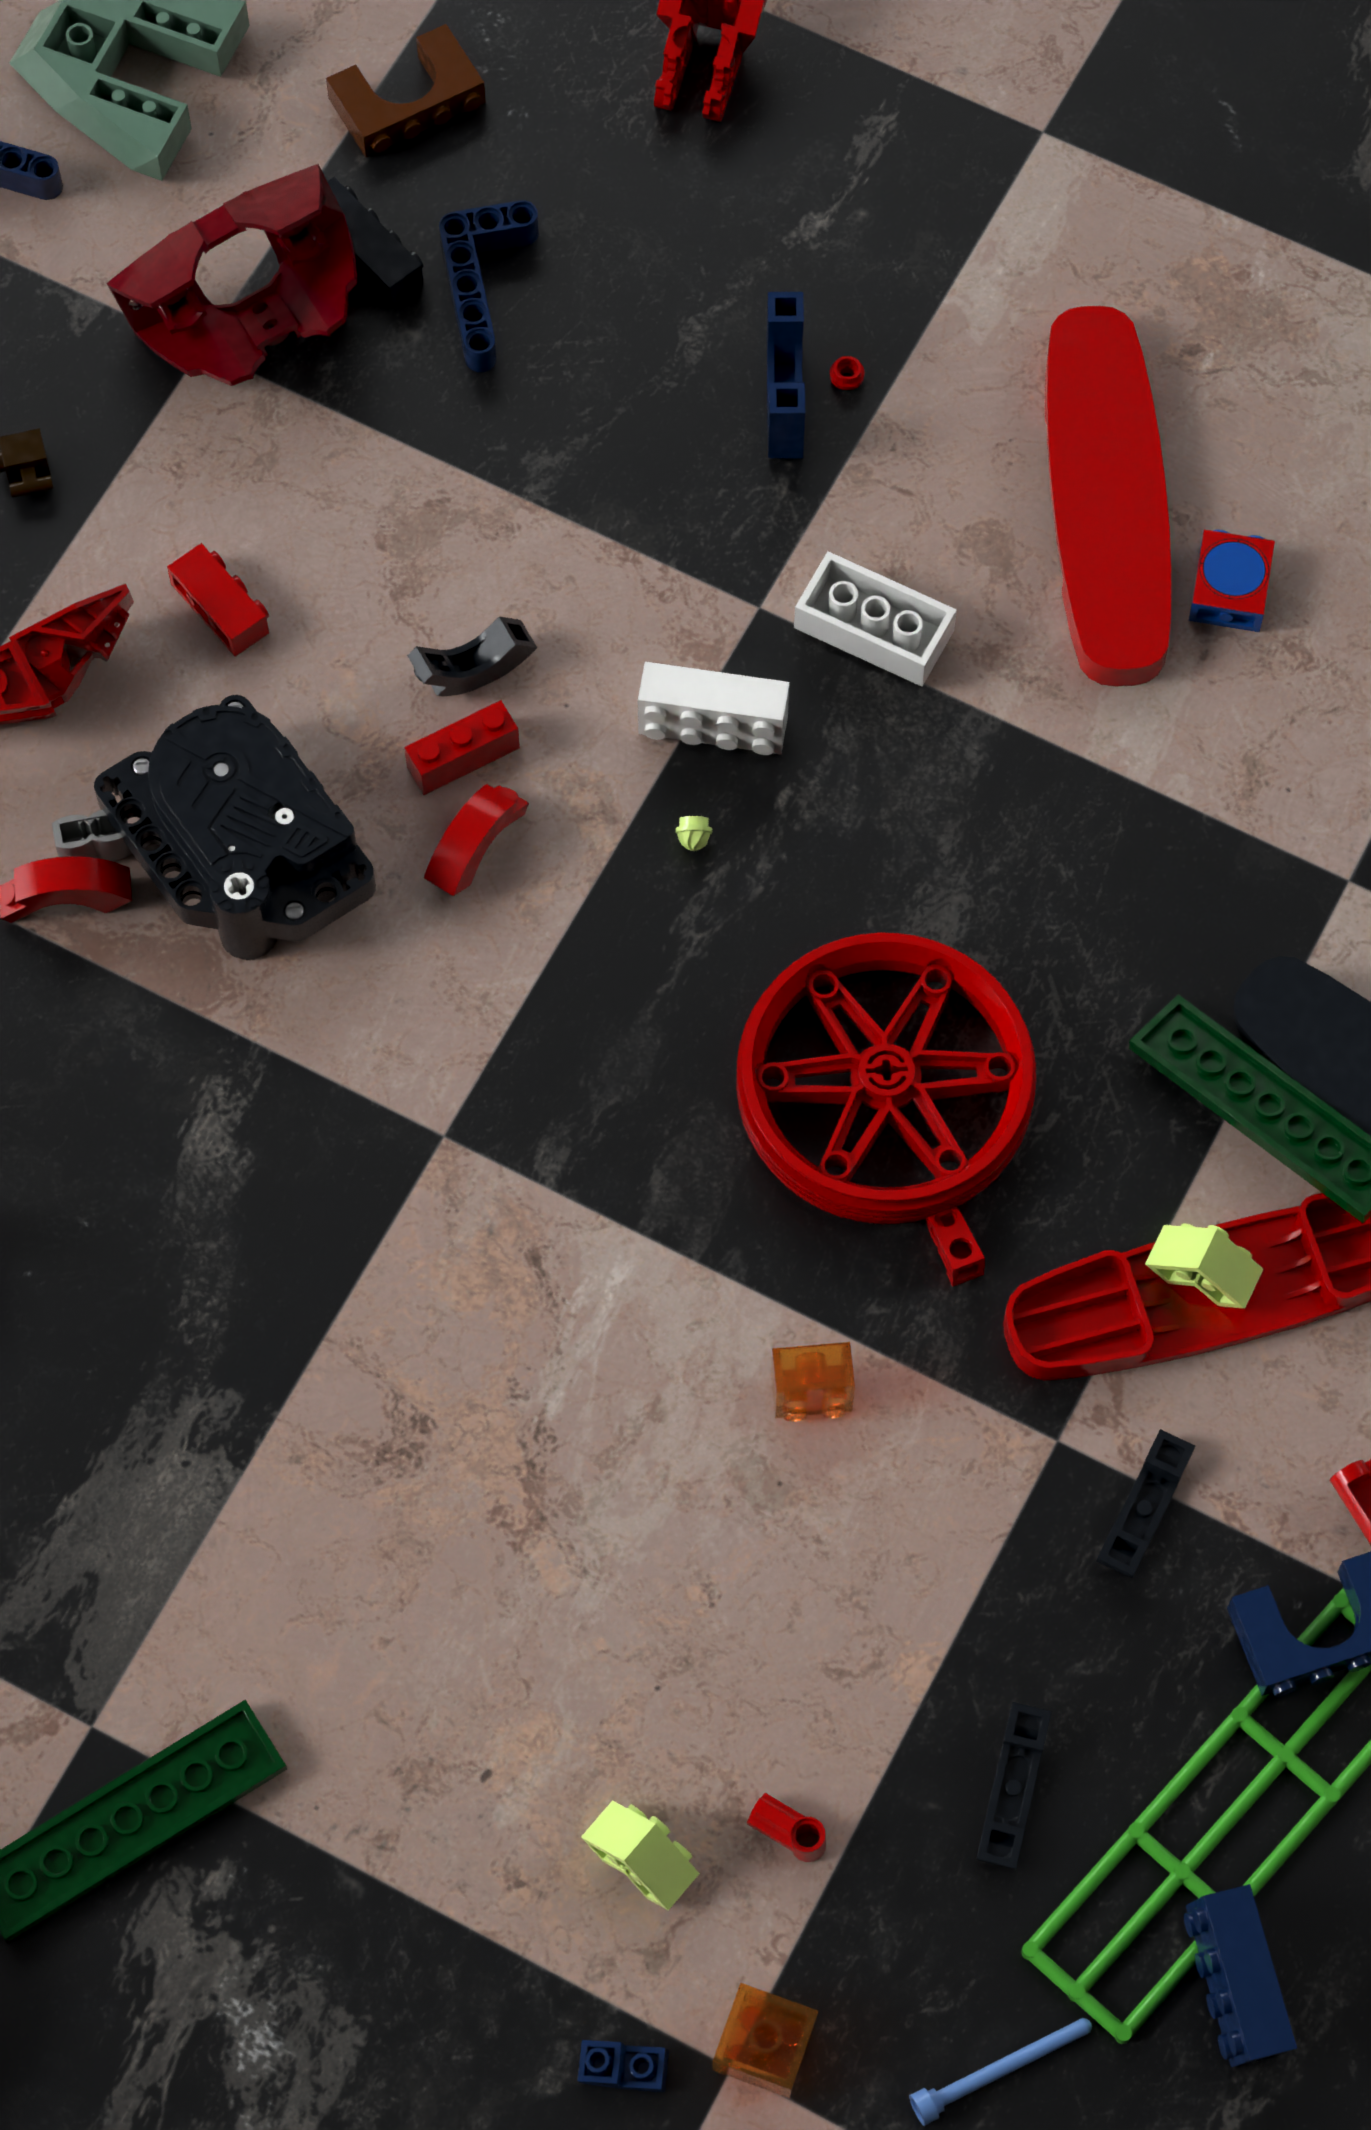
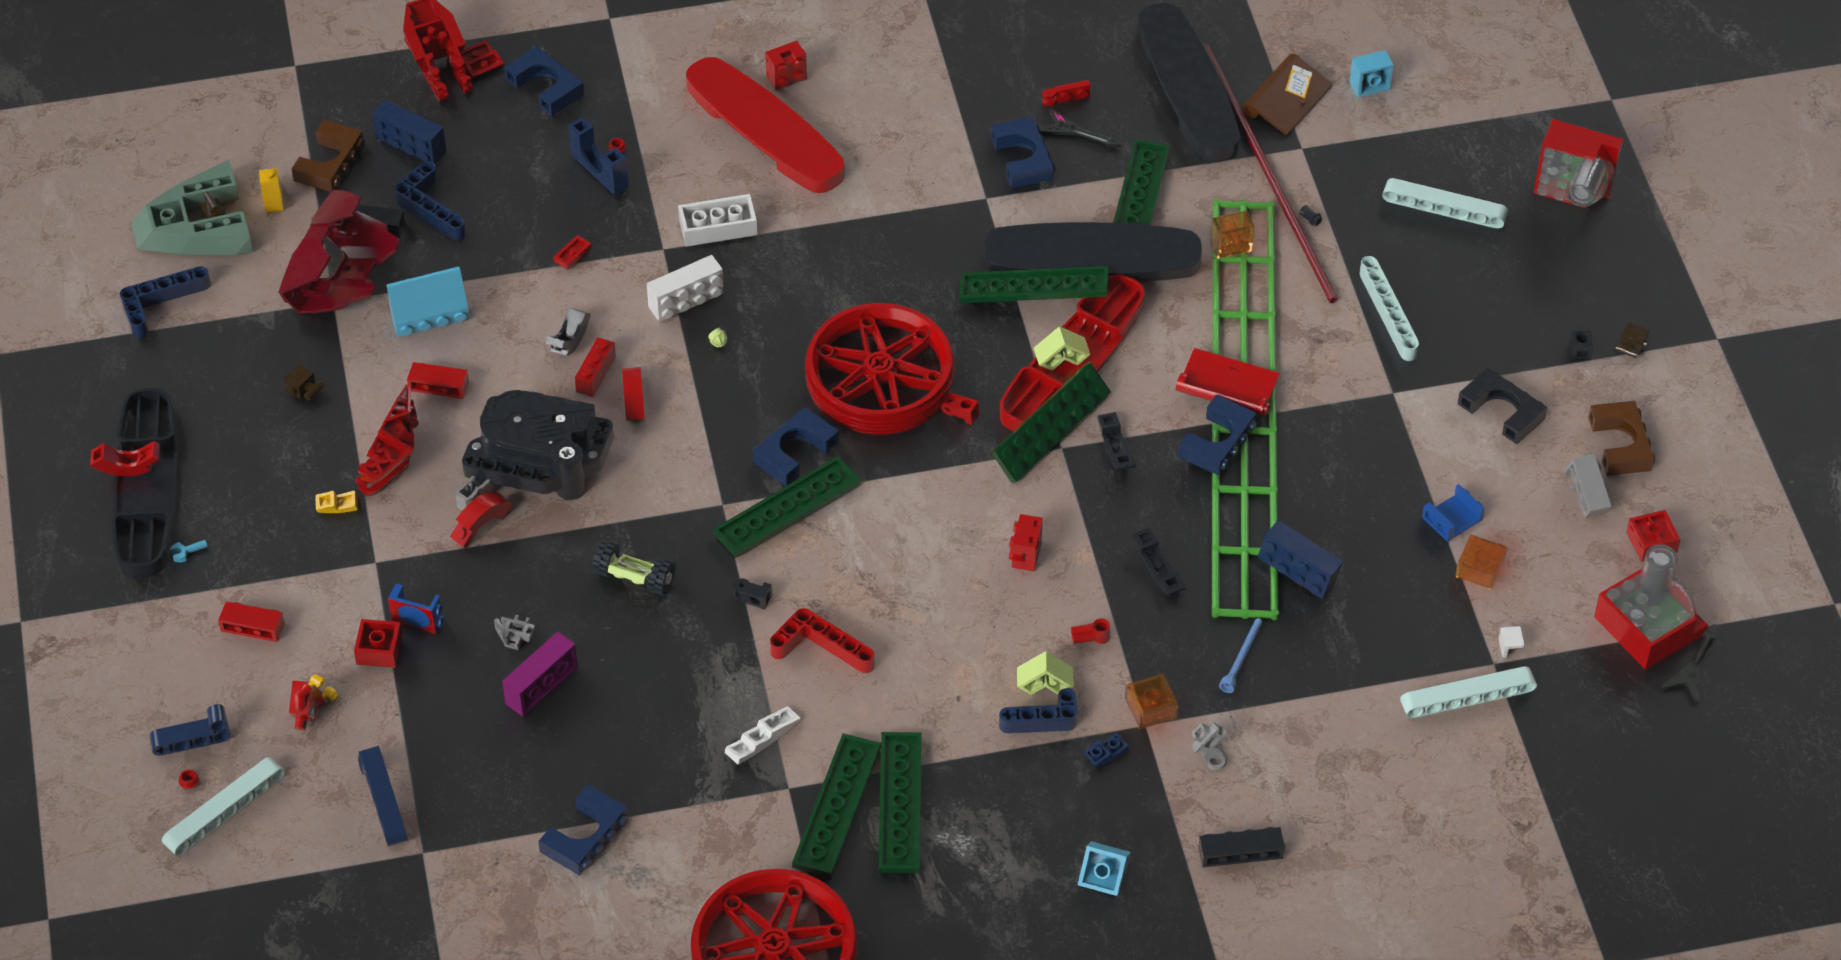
camera: 40 degrees left, 15 degrees down
(131, 1602) = (763, 735): none -> white slope
(159, 70) = (211, 207): none -> dark brown brick
(197, 1153) = (609, 562): none -> plate
(223, 1896) = (900, 802): none -> dark green plate
(265, 95) = (271, 190): none -> yellow slope
(307, 456) = (428, 301): none -> medium azure slope
(337, 1336) = (752, 593): none -> black leg
(374, 1502) = (823, 633): none -> red beam
(529, 1218) = (786, 506): none -> dark green plate
(548, 133) = (409, 132): none -> dark blue brick
(572, 1914) = (1014, 718): none -> dark blue beam
(612, 516) = (572, 252): none -> red plate
(677, 1089) = (803, 426): none -> dark blue arch
(778, 72) = (480, 59): none -> red slope
(812, 1381) = (954, 482): clear orange brick -> none
(827, 1582) = (1026, 542): none -> red piece
(851, 139) = (539, 63): none -> dark blue arch
(1070, 1386) = (1050, 422): none -> dark green plate
(1229, 410) = (786, 65): none -> red piece
(1232, 580) = (844, 123): panel -> none

